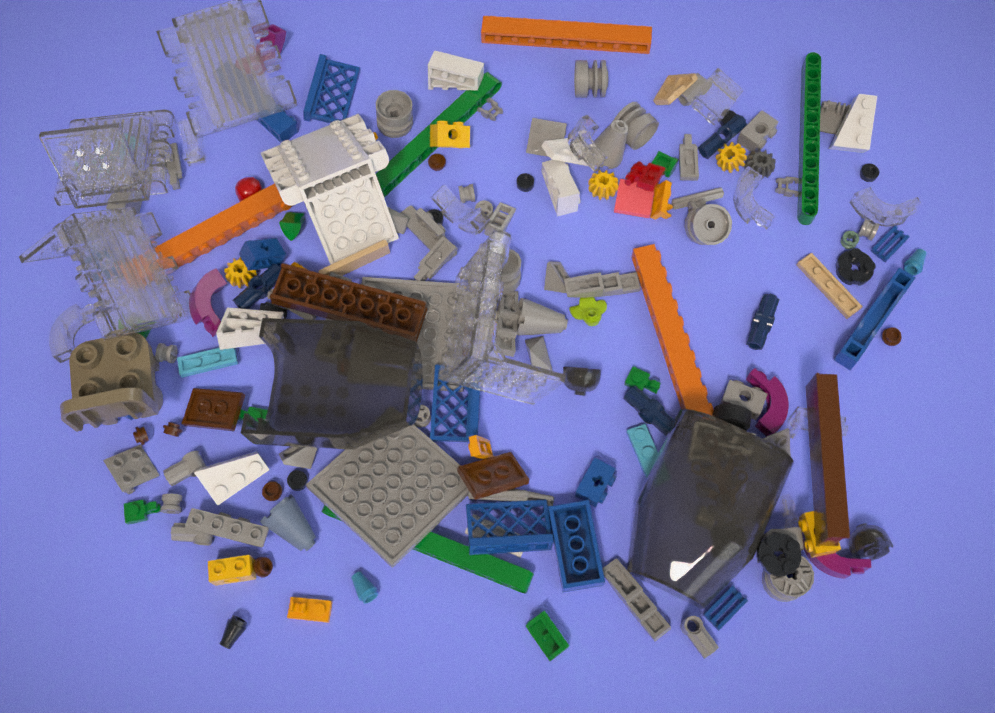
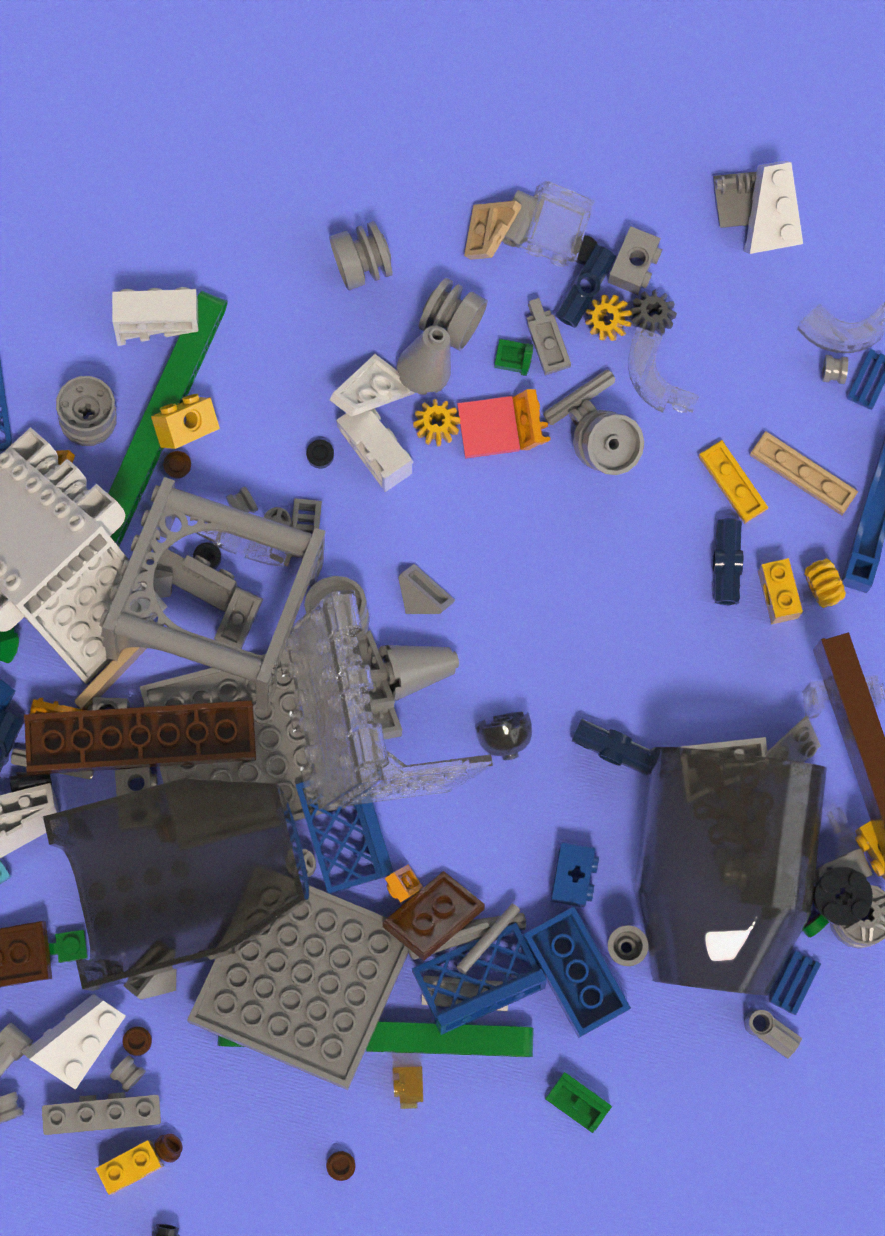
camera: 25 degrees left, 10 degrees up
(181, 533) = (38, 1143): light grey piece -> none
(256, 509) = (127, 1073): none -> light grey wheel
(290, 524) = (184, 1078): sand blue cone -> none
(297, 480) = (165, 1013): black tile -> none
(309, 609) = (253, 1180): light orange plate -> none
(364, 588) = (315, 1126): dark azure cone -> none
(370, 621) = (340, 1166): none -> reddish brown plate
(418, 175) = (127, 628): none -> light grey arch
(436, 583) = (409, 1086): none -> clear yellow brick
(486, 114) = (222, 359): light grey piece -> none
(523, 502) = (488, 938): none -> light grey bar
(538, 353) = (432, 717): light grey slope -> none
(541, 131) = (324, 370): light grey hinge -> none
(566, 34) = (296, 184): orange brick -> none
(582, 144) = (384, 370): clear arch -> none
(589, 310) = (477, 622): lime plate -> none
(602, 285) = (487, 583): light grey slope -> none
(618, 532) = (632, 936): none -> light grey plant
(636, 600) = (676, 1013): light grey slope -> none
(641, 380) = (584, 706): green plate -> none
(643, 447) = (620, 801): medium azure plate -> none
(645, 176) = (501, 391): red plate -> none
(670, 330) = (606, 623): orange brick -> none
(734, 414) = (727, 722): black tyre -> none
(750, 573) = (815, 925): none -> green tile
(755, 397) = (718, 693): light grey brick -> none
(776, 402) = (781, 678): magenta arch -> none
(781, 276) = (733, 482): none -> yellow tile
(787, 192) = (703, 344): light grey piece -> none
(792, 349) = (780, 591): none -> yellow brick
(809, 139) = (711, 256): green beam -> none
(824, 353) = (825, 583): none -> yellow gear
(850, 235) = (812, 383): sand green bush -> none
(861, 260) = (846, 427): black plate -> none
(869, 172) = (812, 273): black tile -> none

